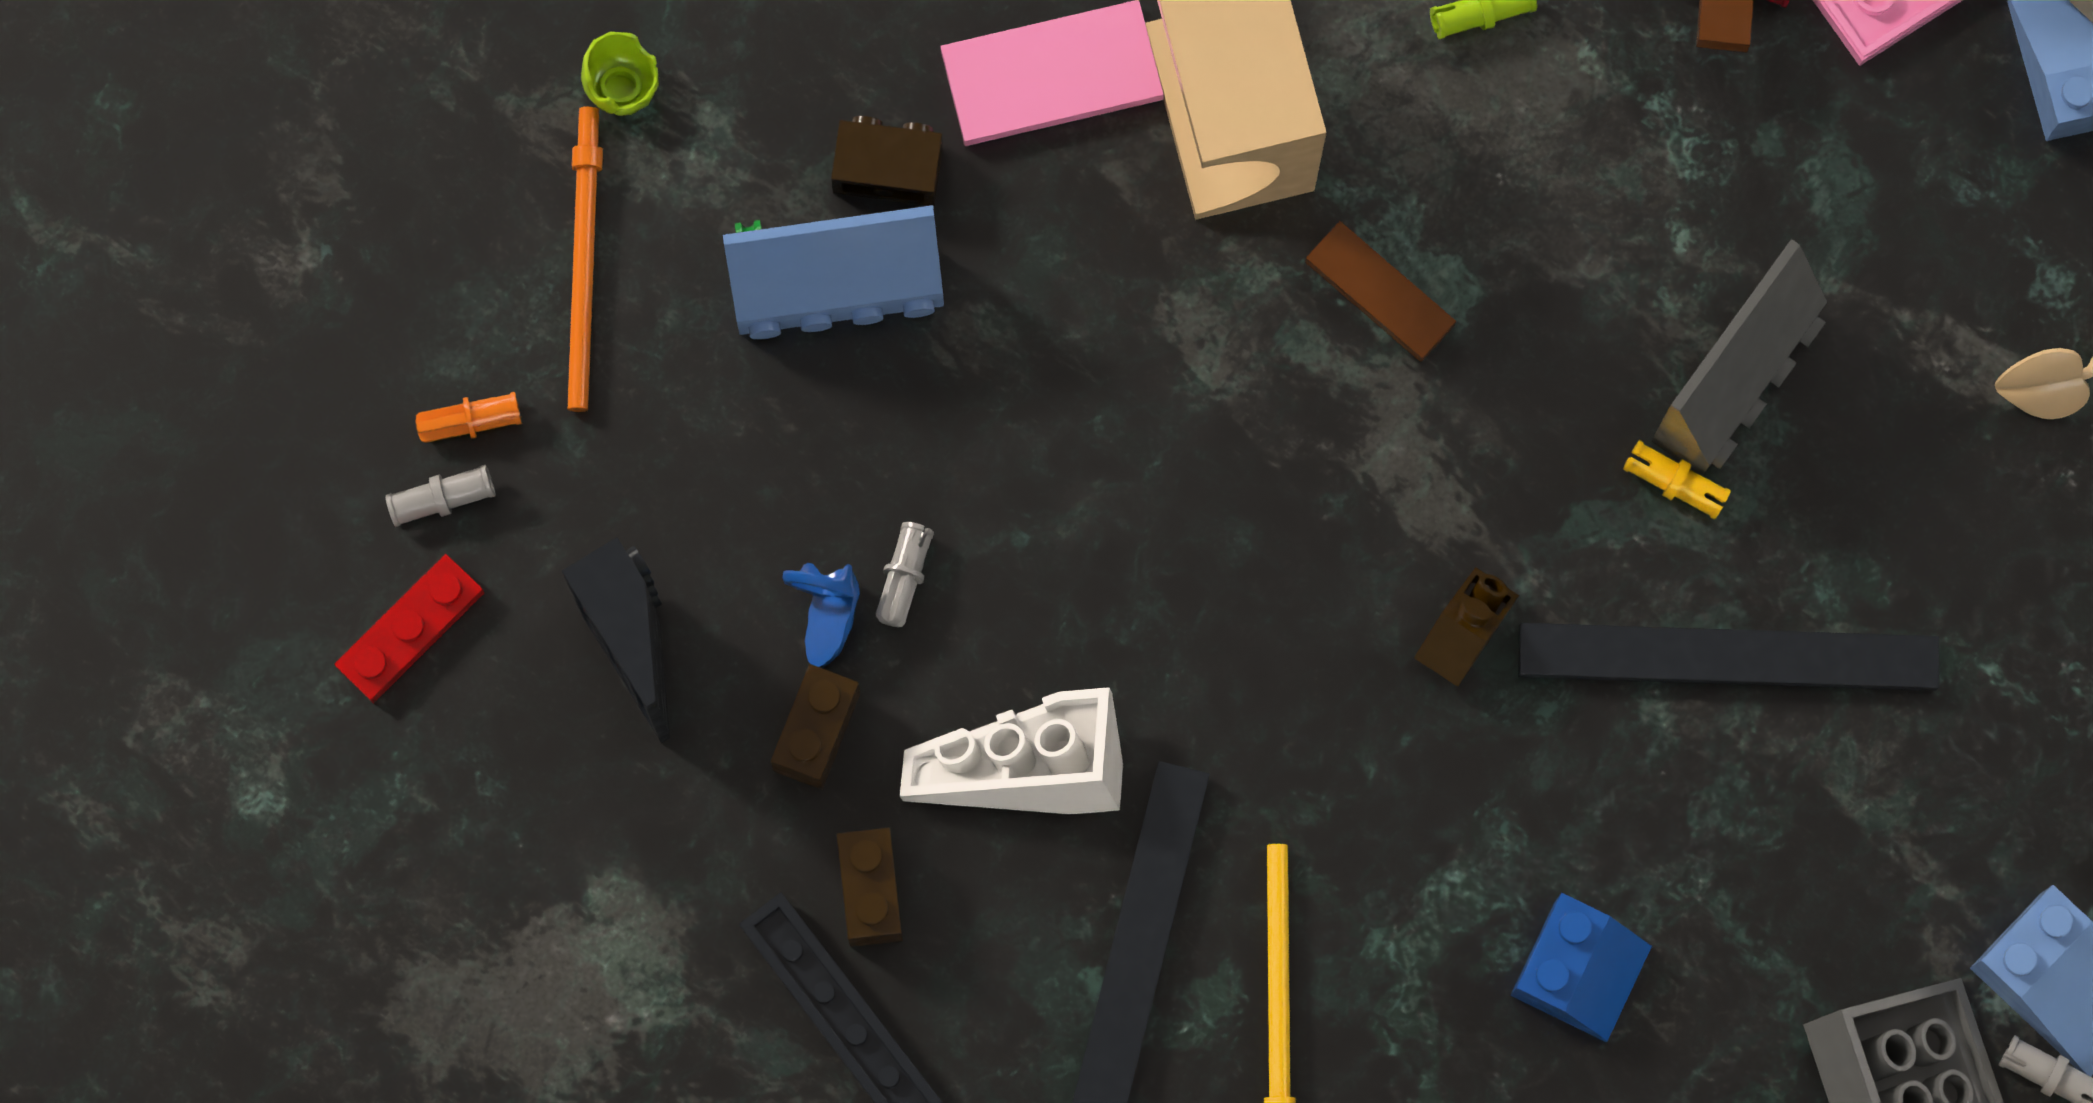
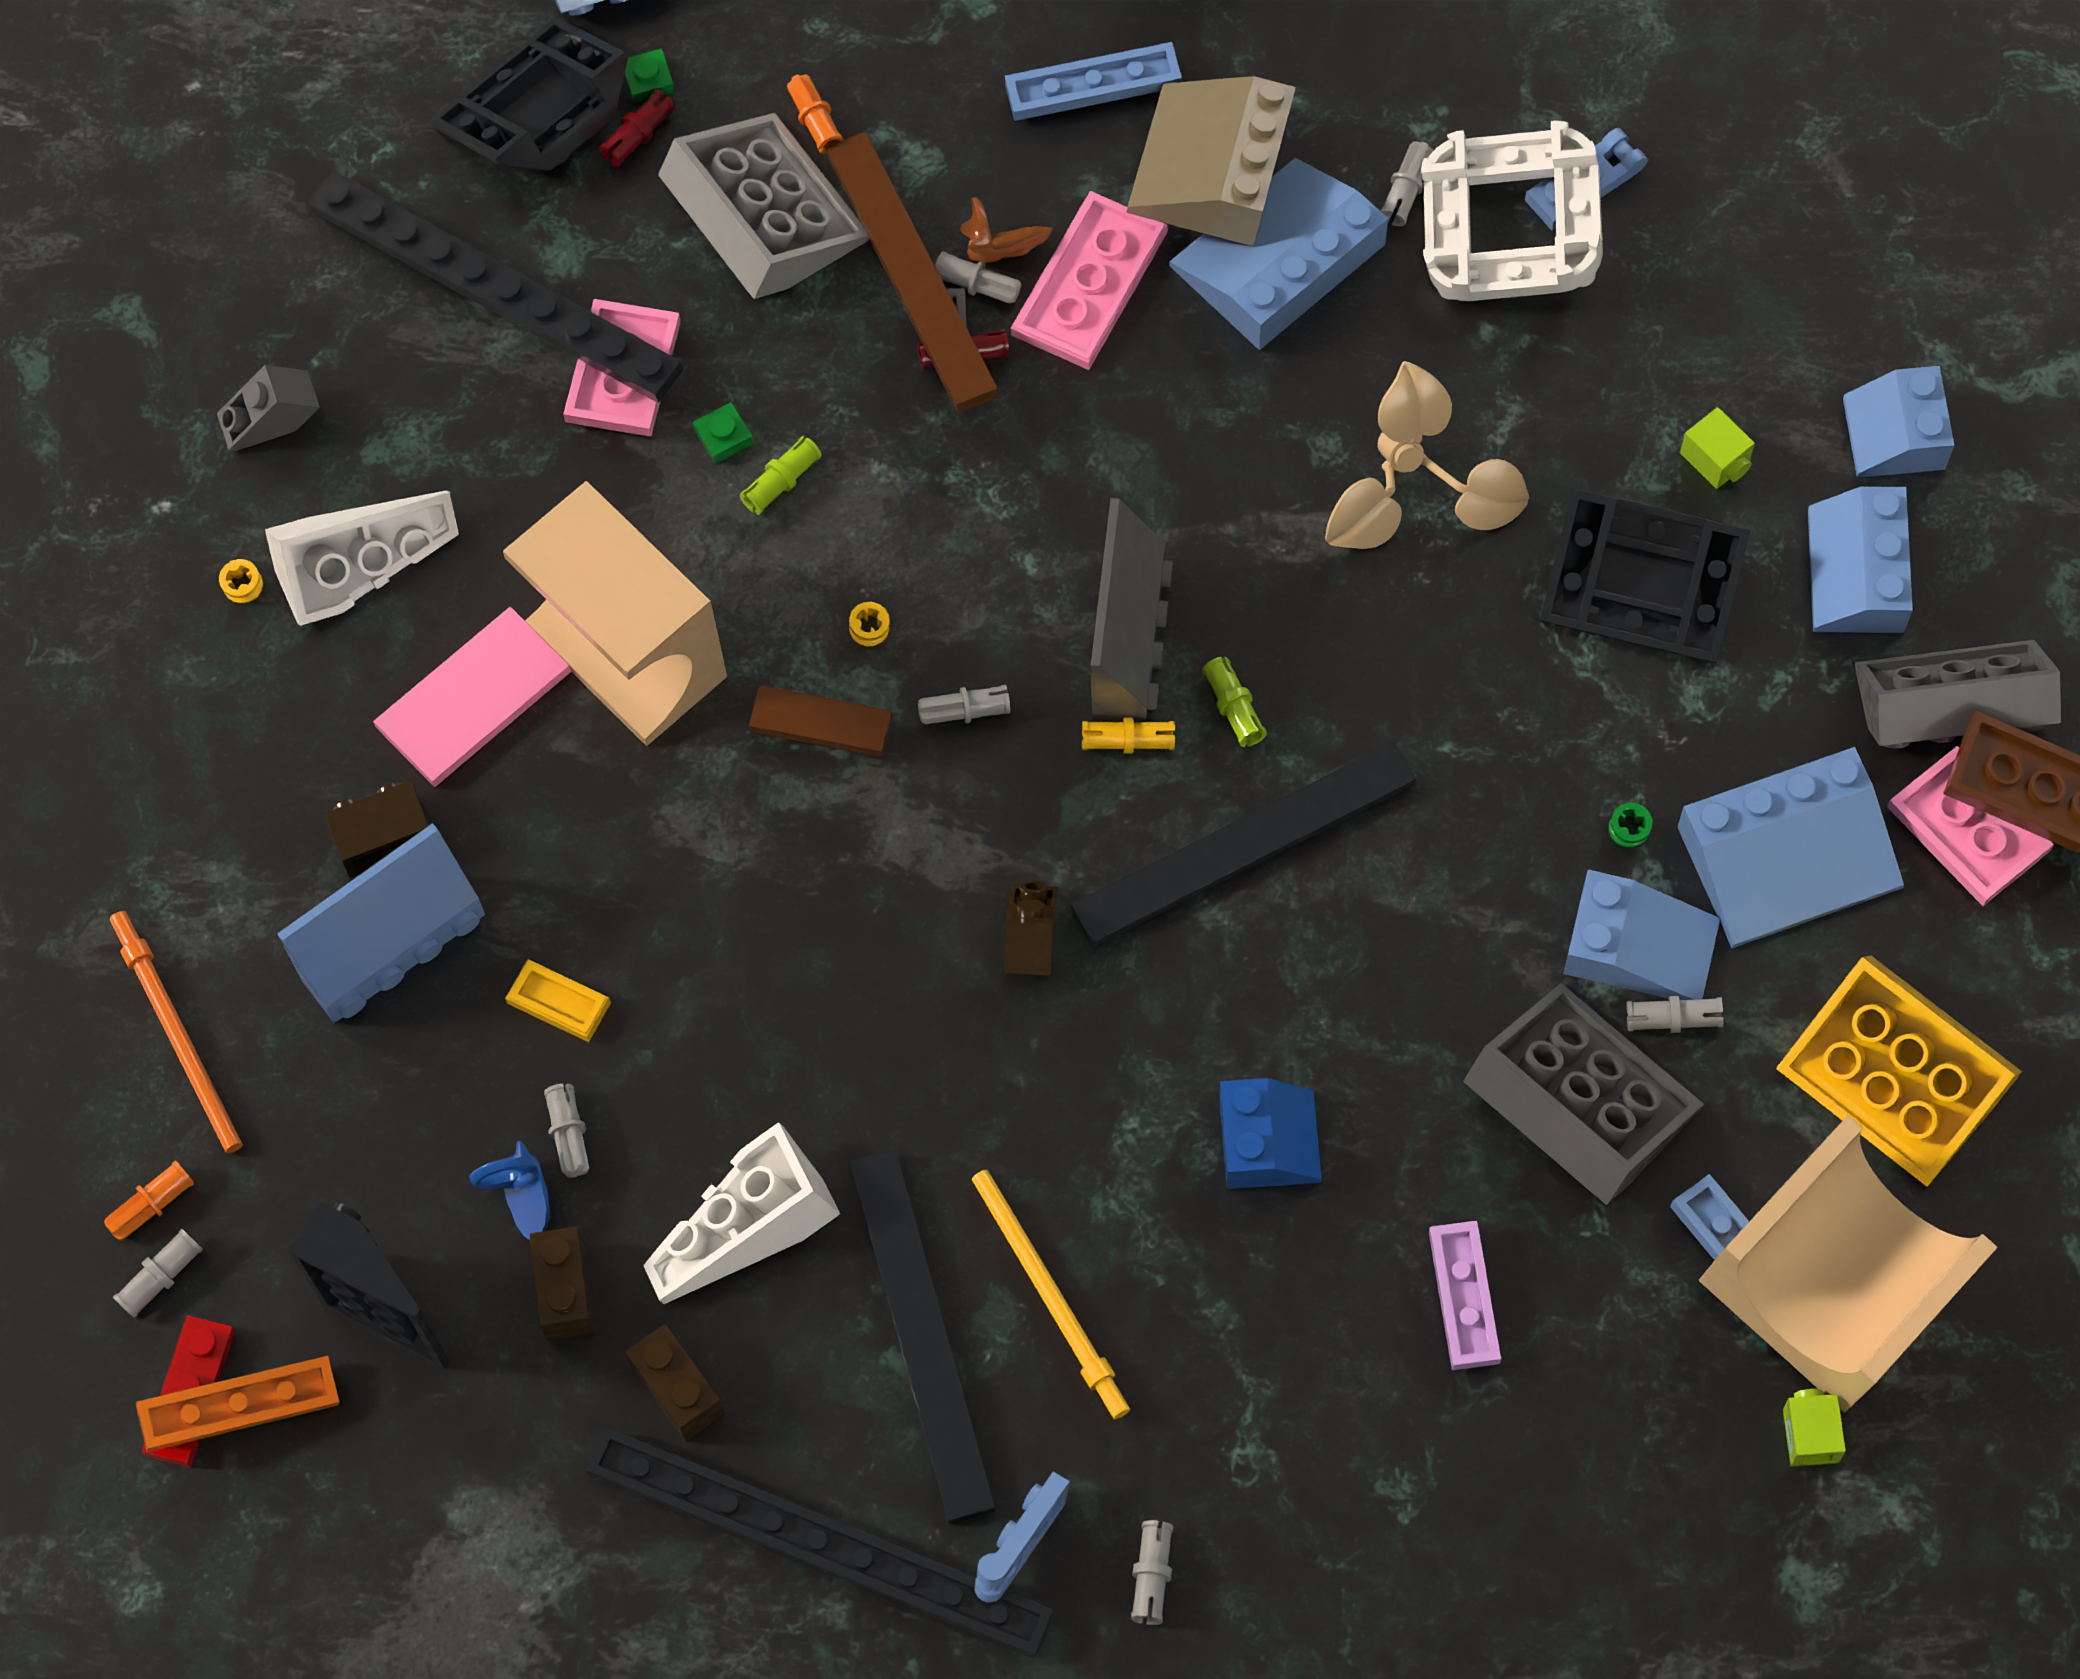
camera: 25 degrees left, 10 degrees down
(446, 671) = (237, 1403): none -> orange plate
(619, 74) = (127, 874): lime hair -> none
(966, 435) = (558, 1000): none -> yellow tile
(1499, 221) = (855, 625): none -> yellow bush
(1531, 356) = (964, 705): none -> light grey axle
(1803, 504) = (1234, 701): none -> lime pin

